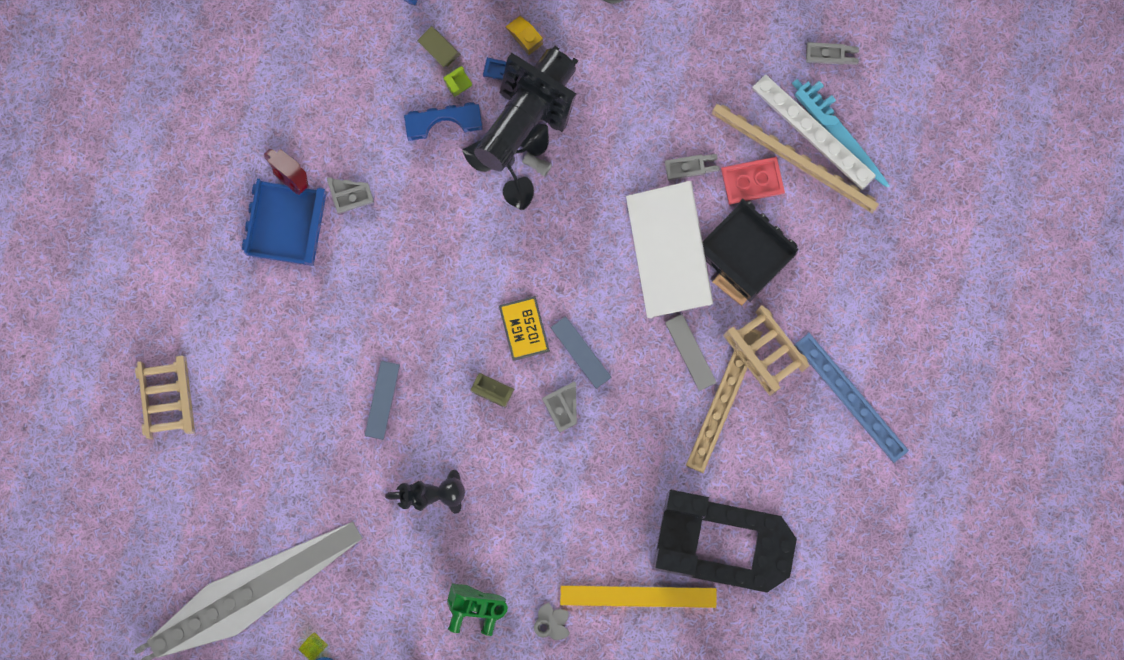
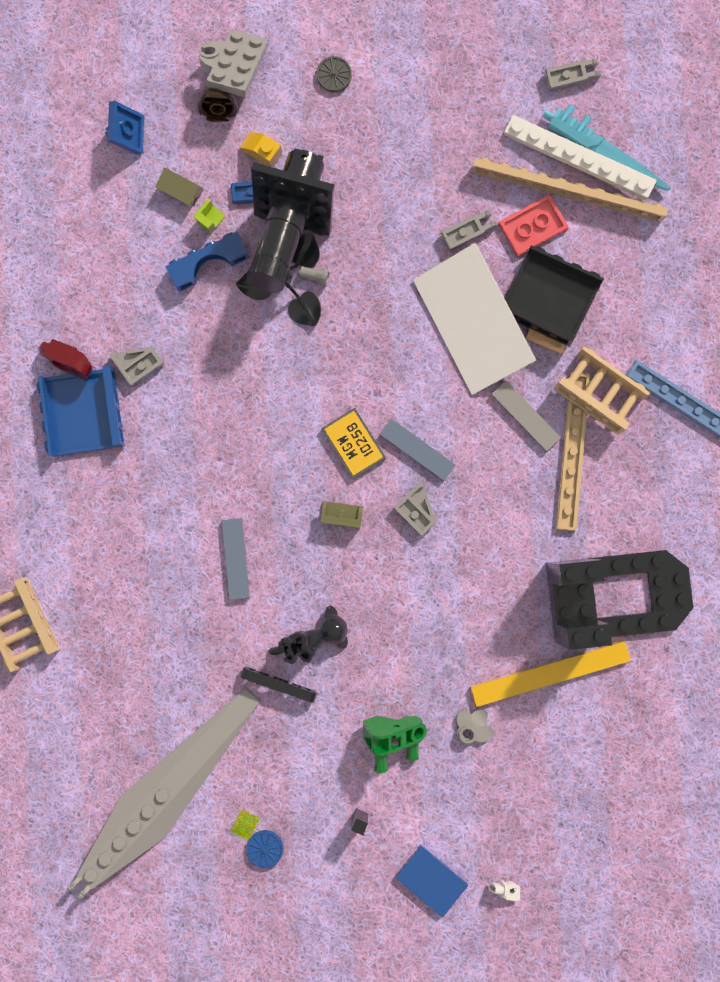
camera: 15 degrees left, 5 degrees up
(385, 527) = (278, 684): none -> black beam

